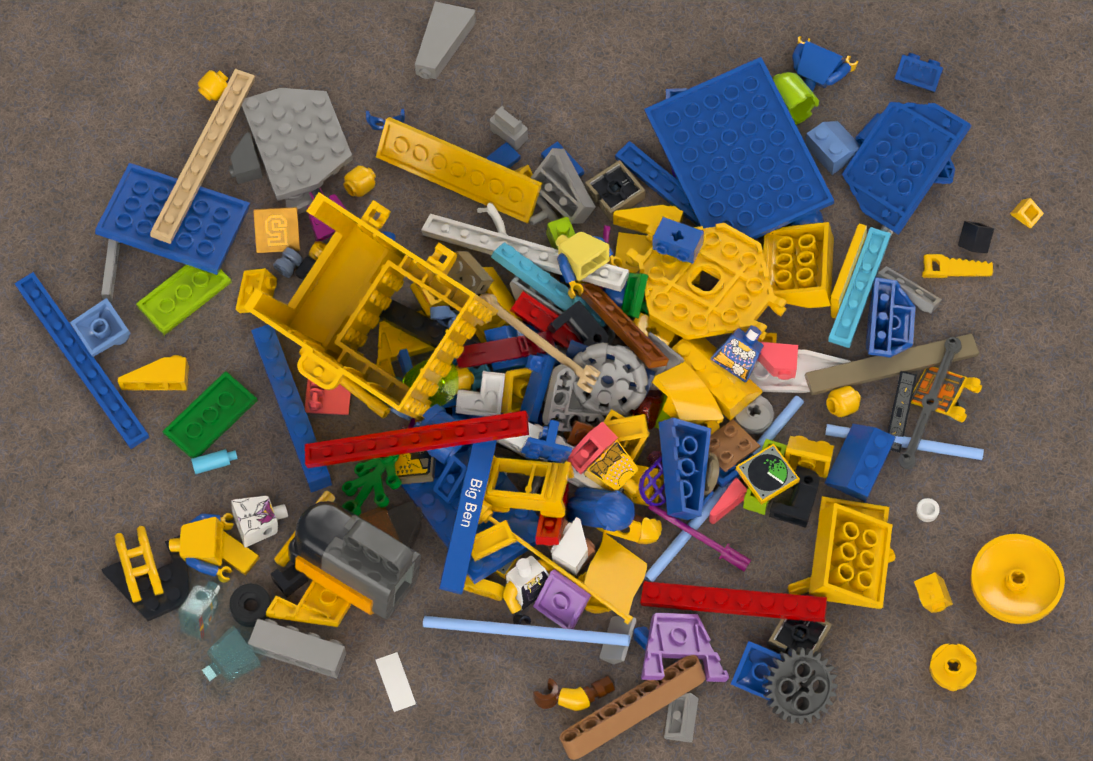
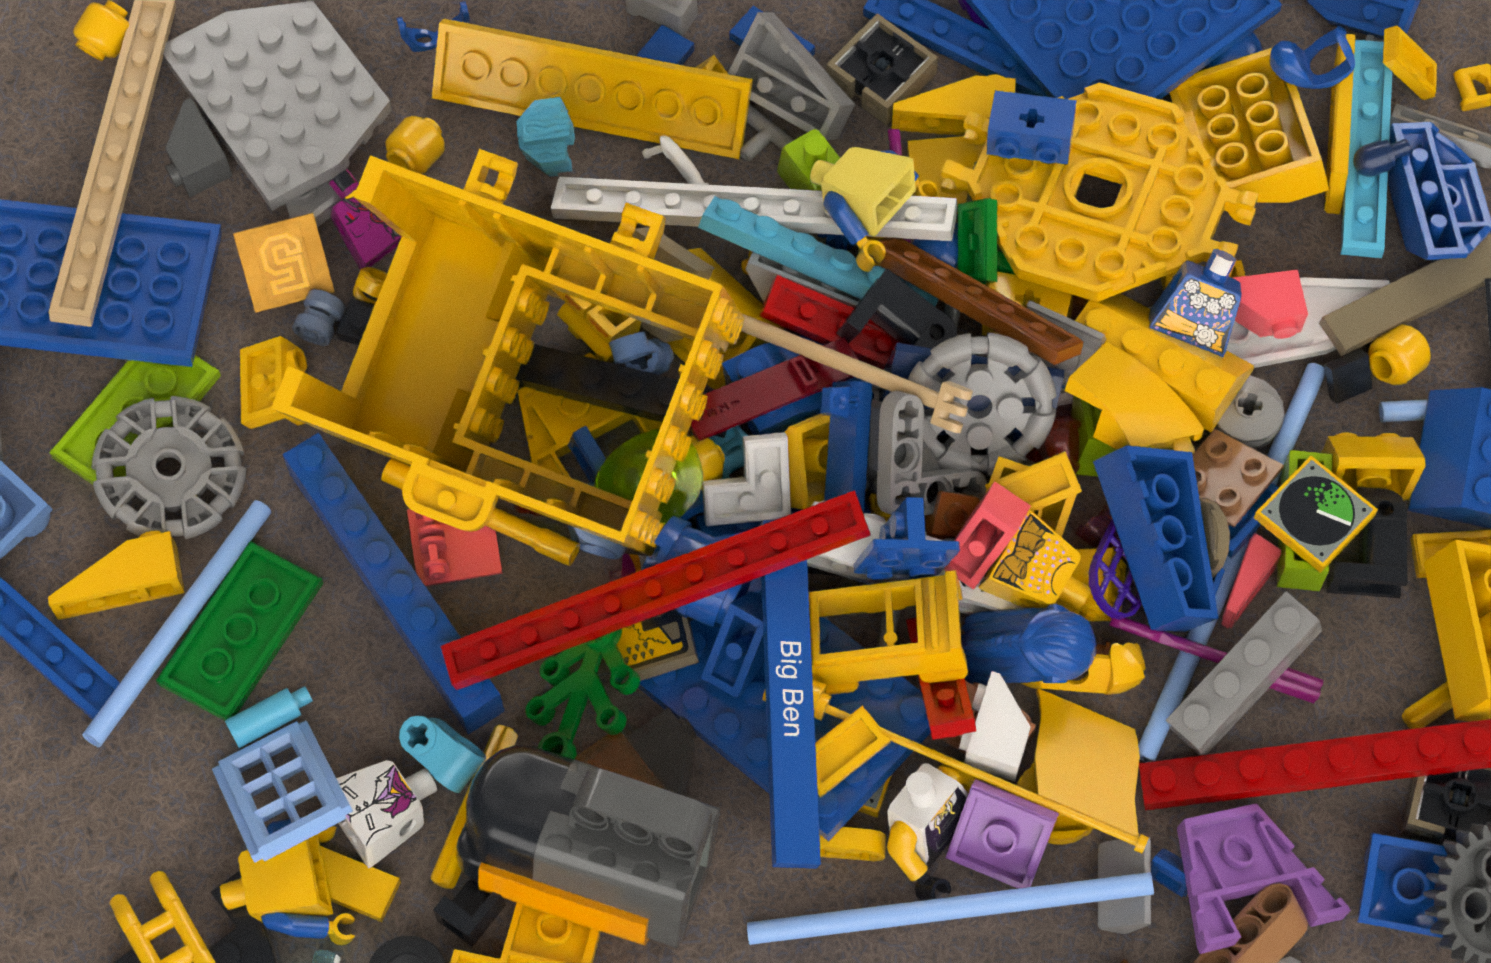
camera: 15 degrees left, 0 degrees up
(179, 404) = (176, 624): none -> light blue piece
(200, 335) = (173, 491): none -> light grey plate
(230, 500) = (242, 806): none -> light blue piece
(293, 496) = (446, 755): none -> medium azure piece
(427, 189) = (544, 135): none -> medium azure hair
(707, 548) = (1244, 674): none -> light grey brick
(813, 406) = (1348, 376): none -> black tile
(829, 235) = (1293, 63): none -> blue piece
(861, 293) = (1379, 156): none -> dark blue cylinder
(897, 245) = (1409, 62): none -> yellow tile

